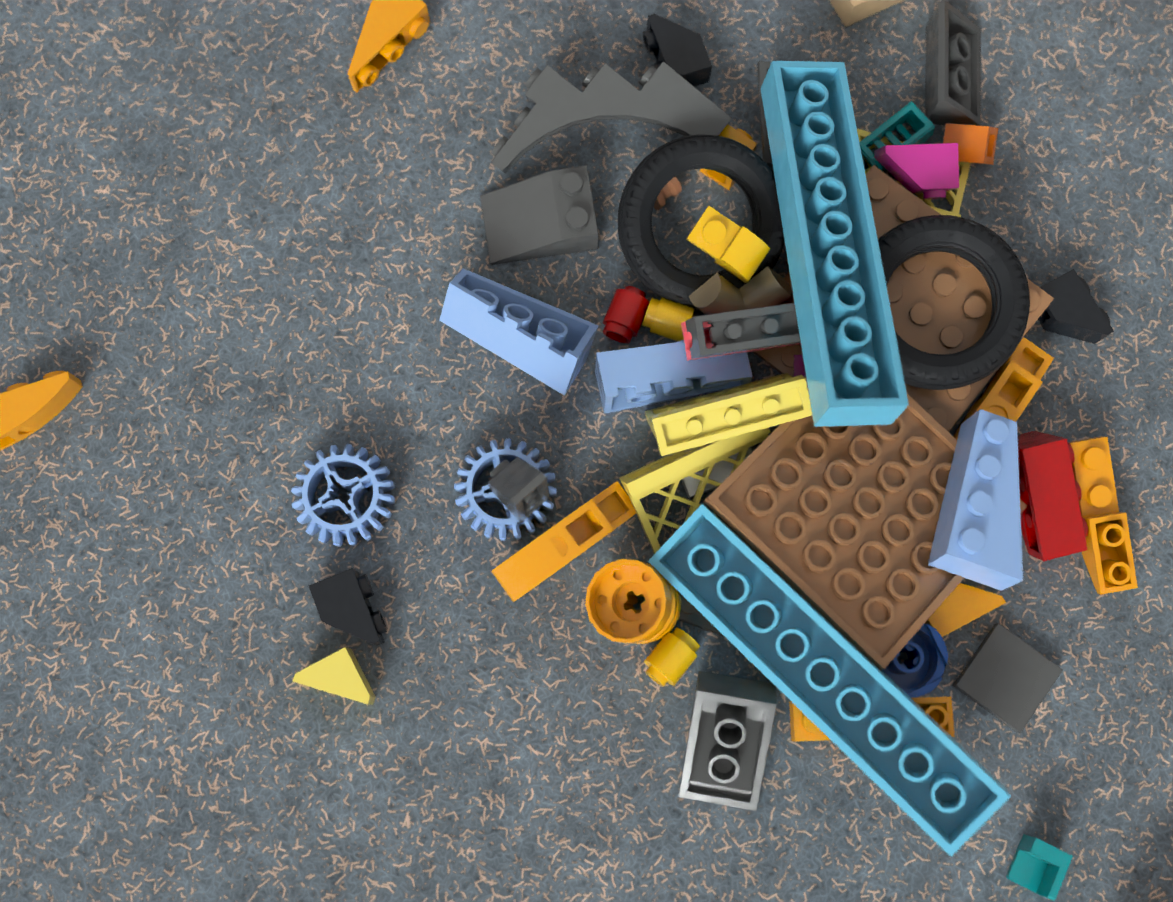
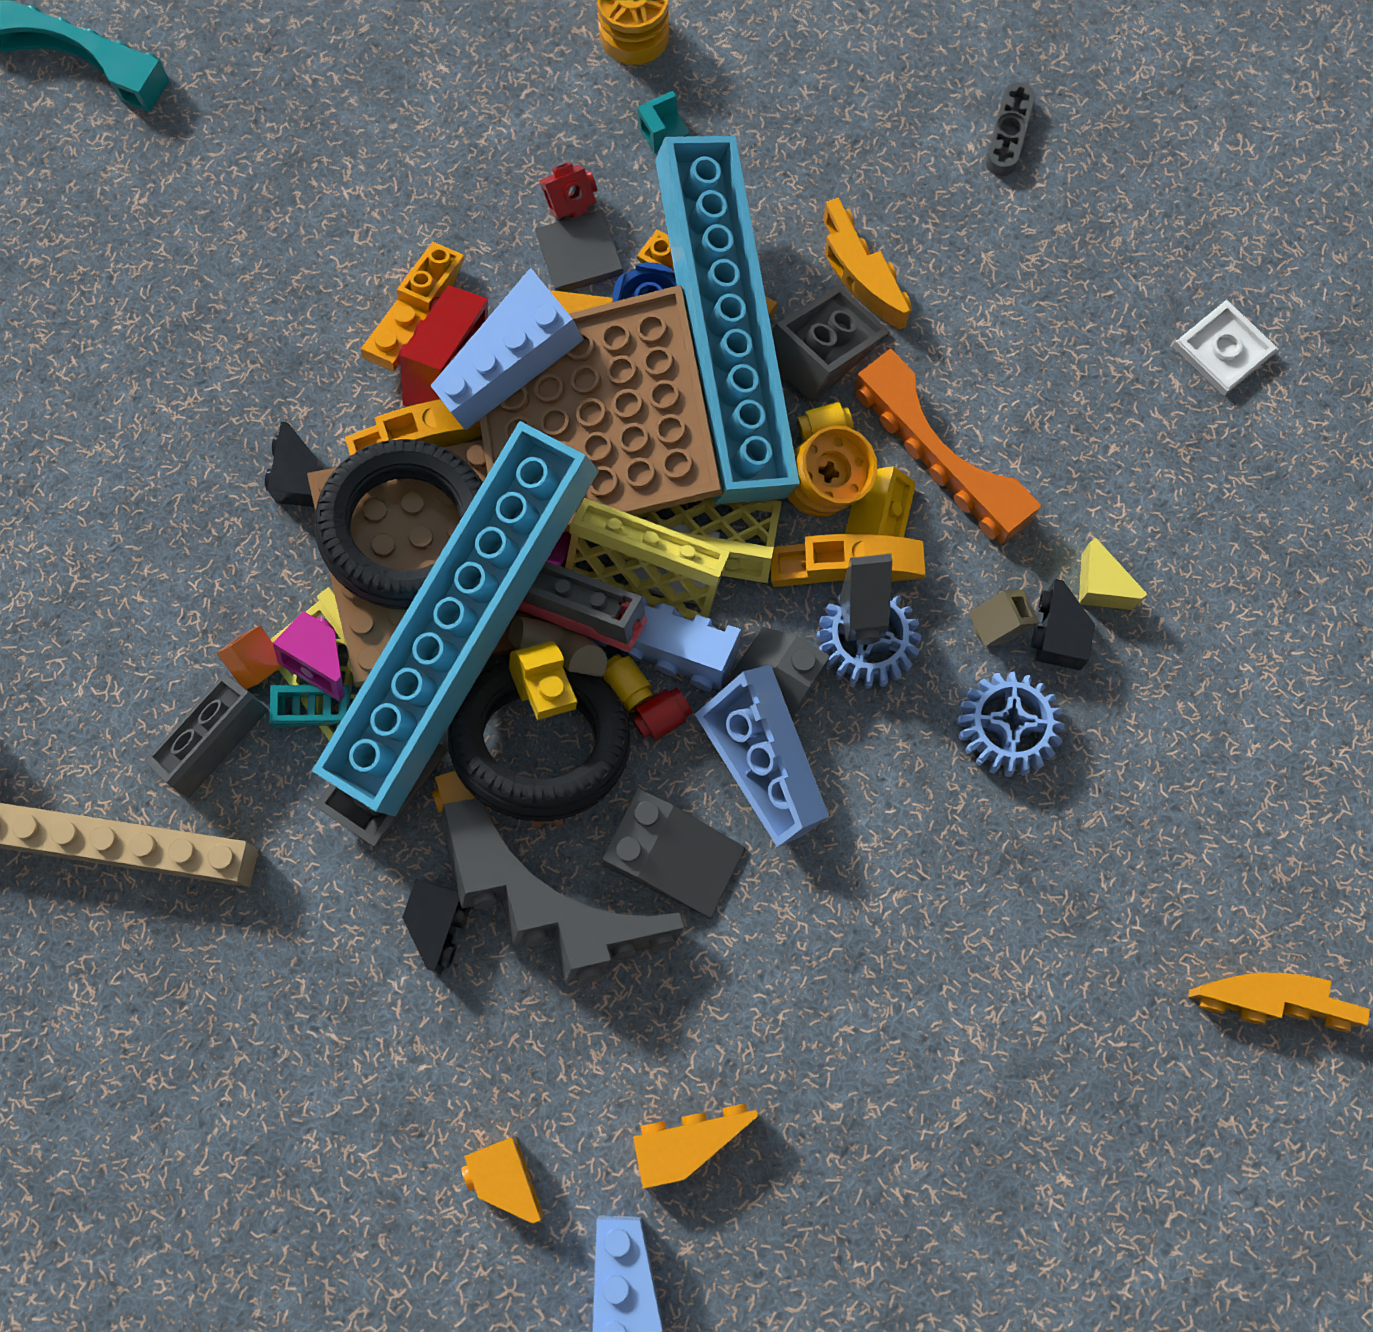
camera: 140 degrees left, 5 degrees down
(402, 578) = (1003, 618): none -> dark tan brick
(558, 419) = (793, 661): none -> dark grey slope
(565, 614) = (884, 507): none -> yellow panel
(634, 730) = (996, 501): none -> orange arch
(733, 835) = (864, 275): none -> light orange slope
(1063, 724) = (557, 188): none -> red brick

